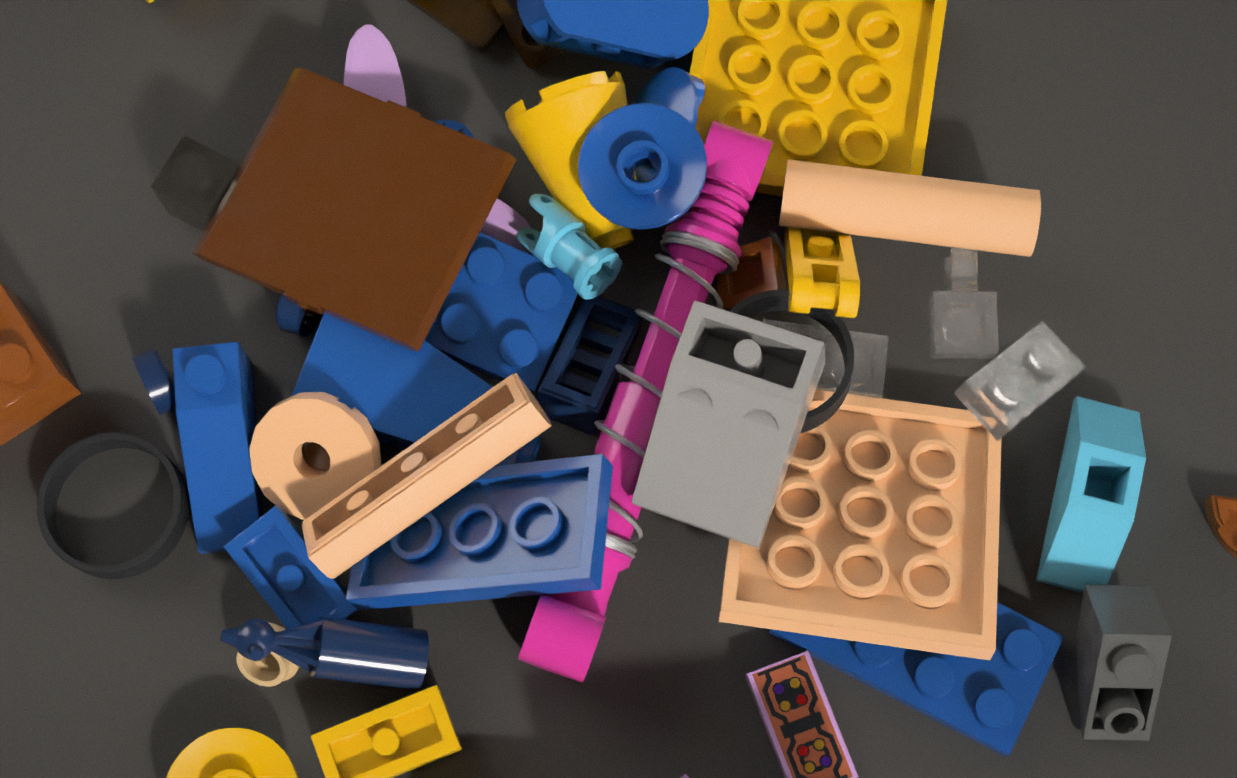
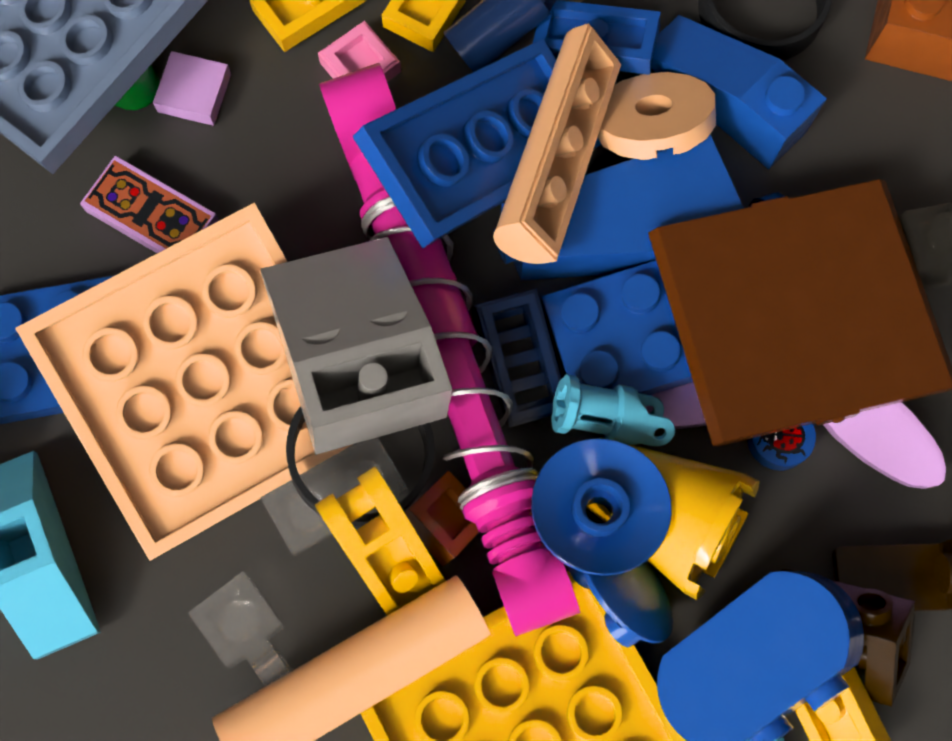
camera: 140 degrees right, 0 degrees up
(156, 380) = (829, 84): dark blue tile -> none
(510, 730) = (358, 50): none -> bright pink tile
(1019, 380) = (153, 604): clear plate -> none

